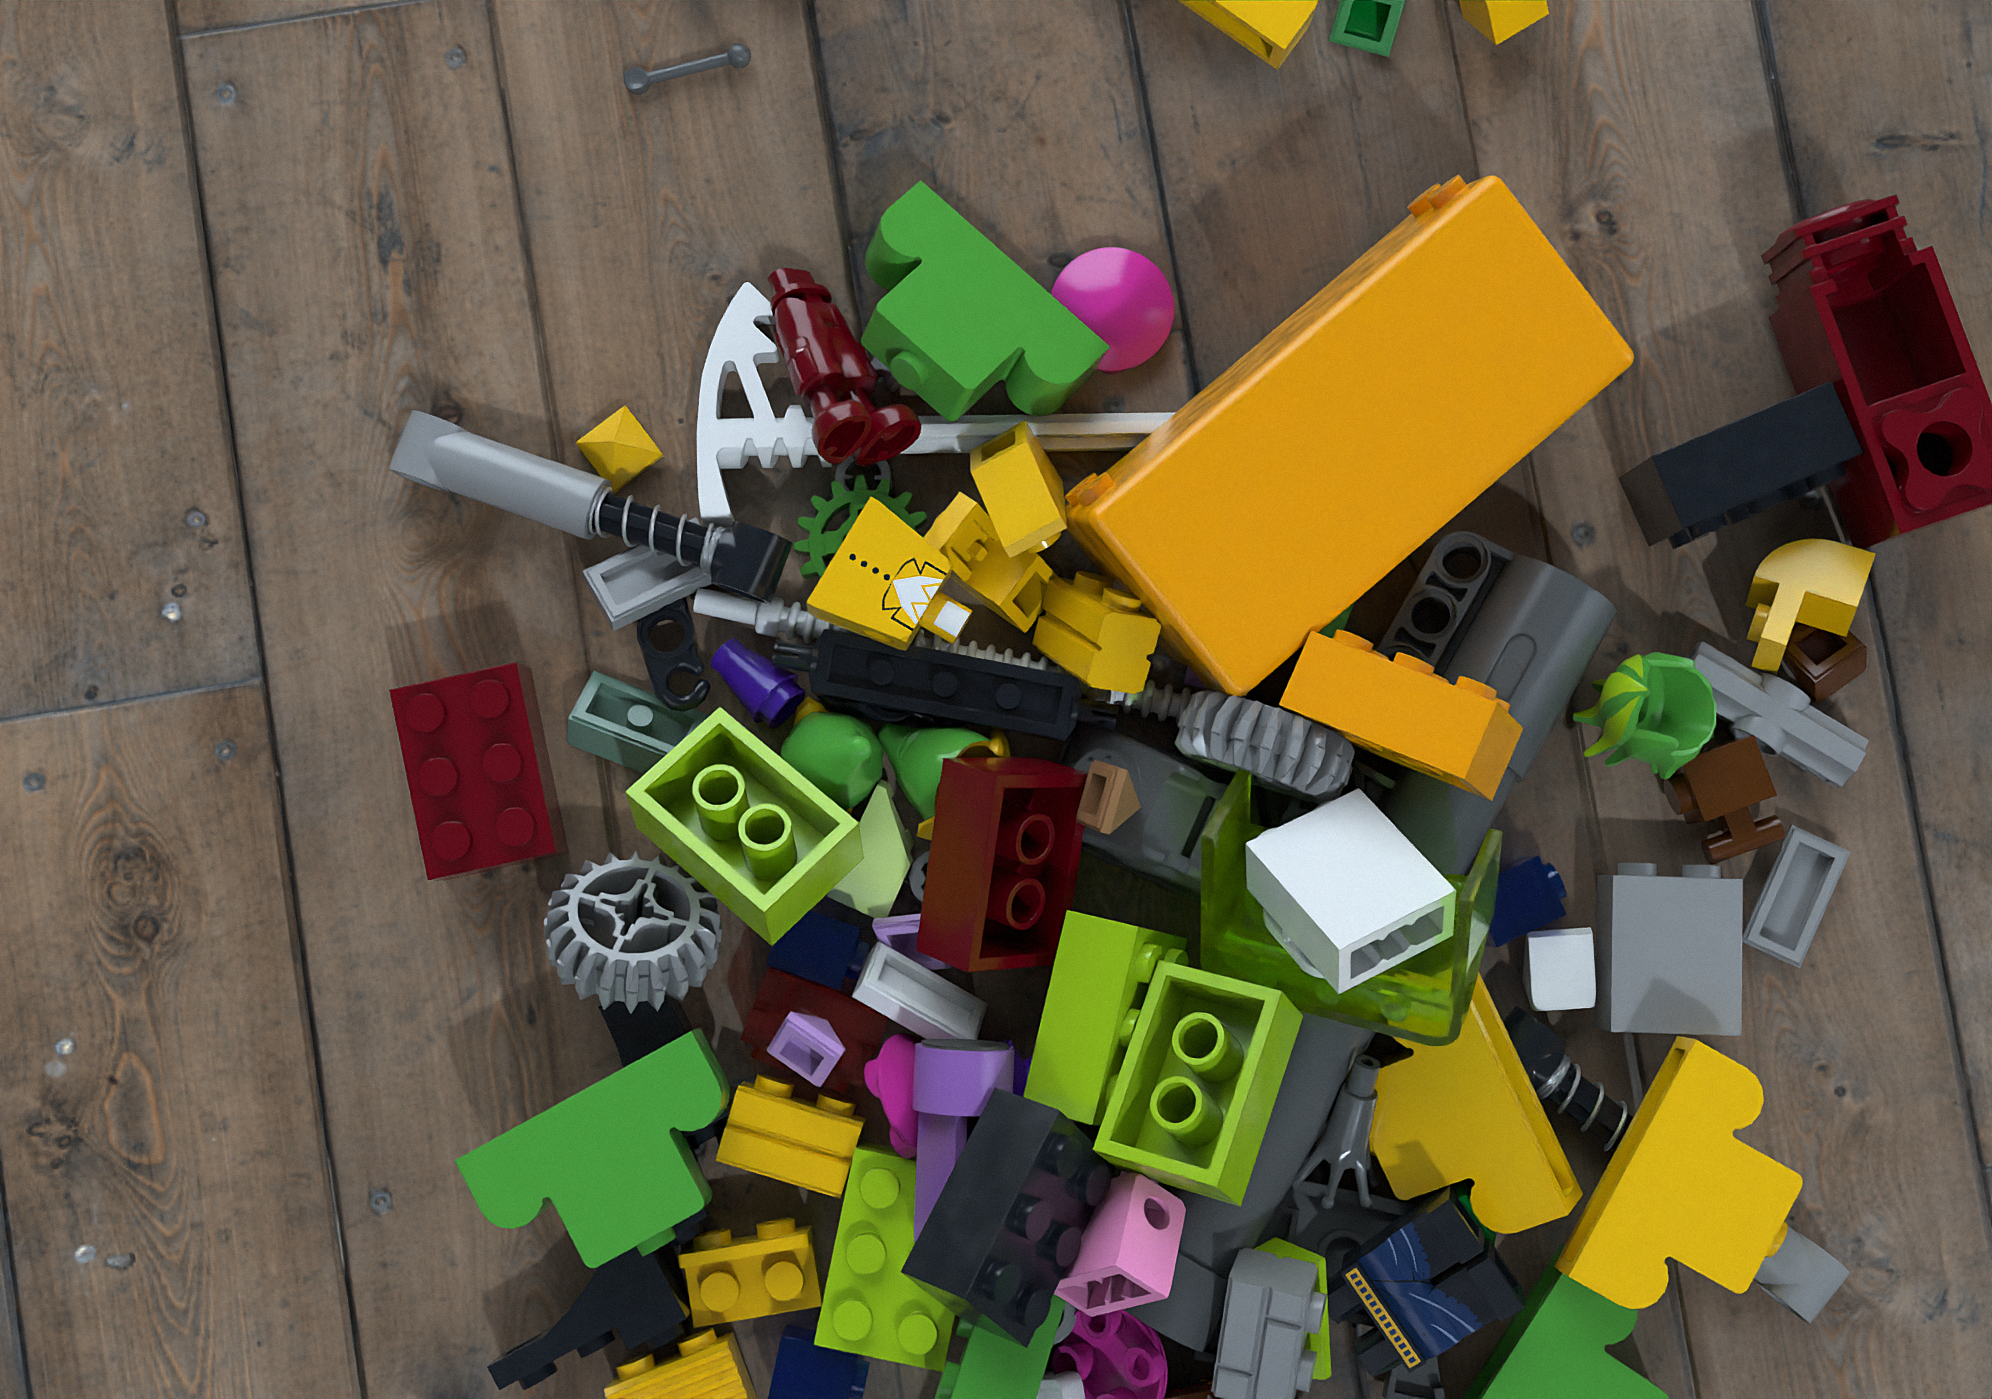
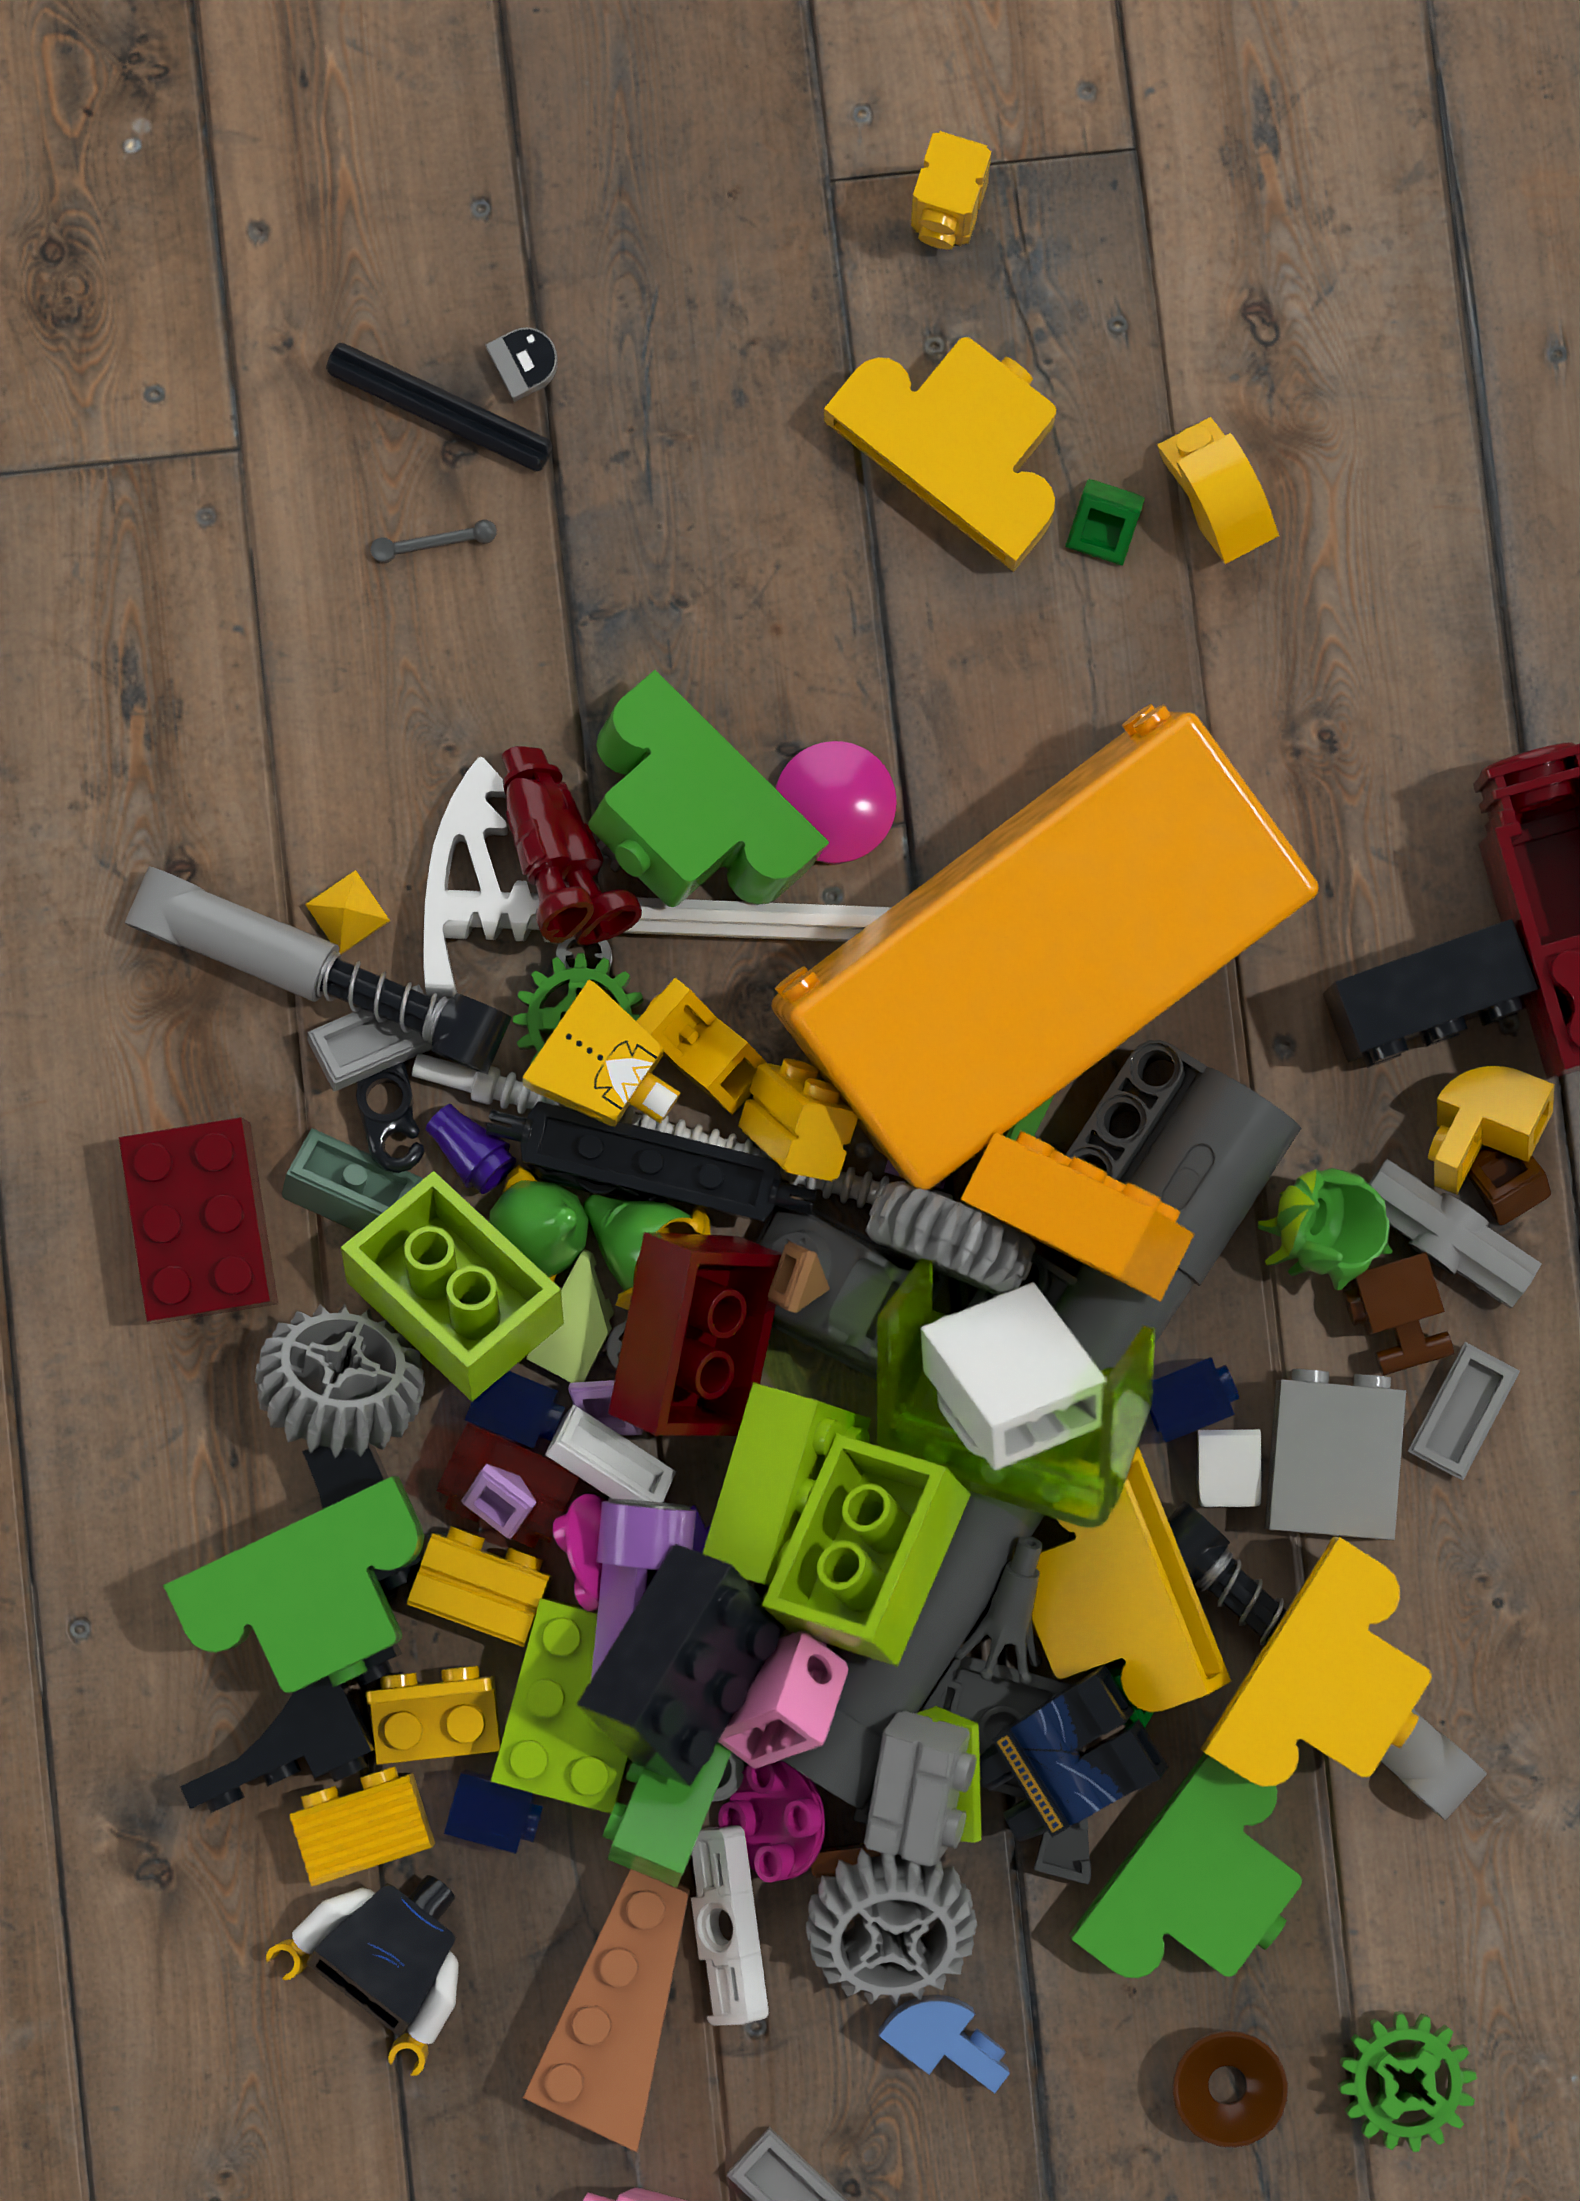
camera: 10 degrees right, 0 degrees up
(1020, 490) = (733, 977): yellow slope -> none

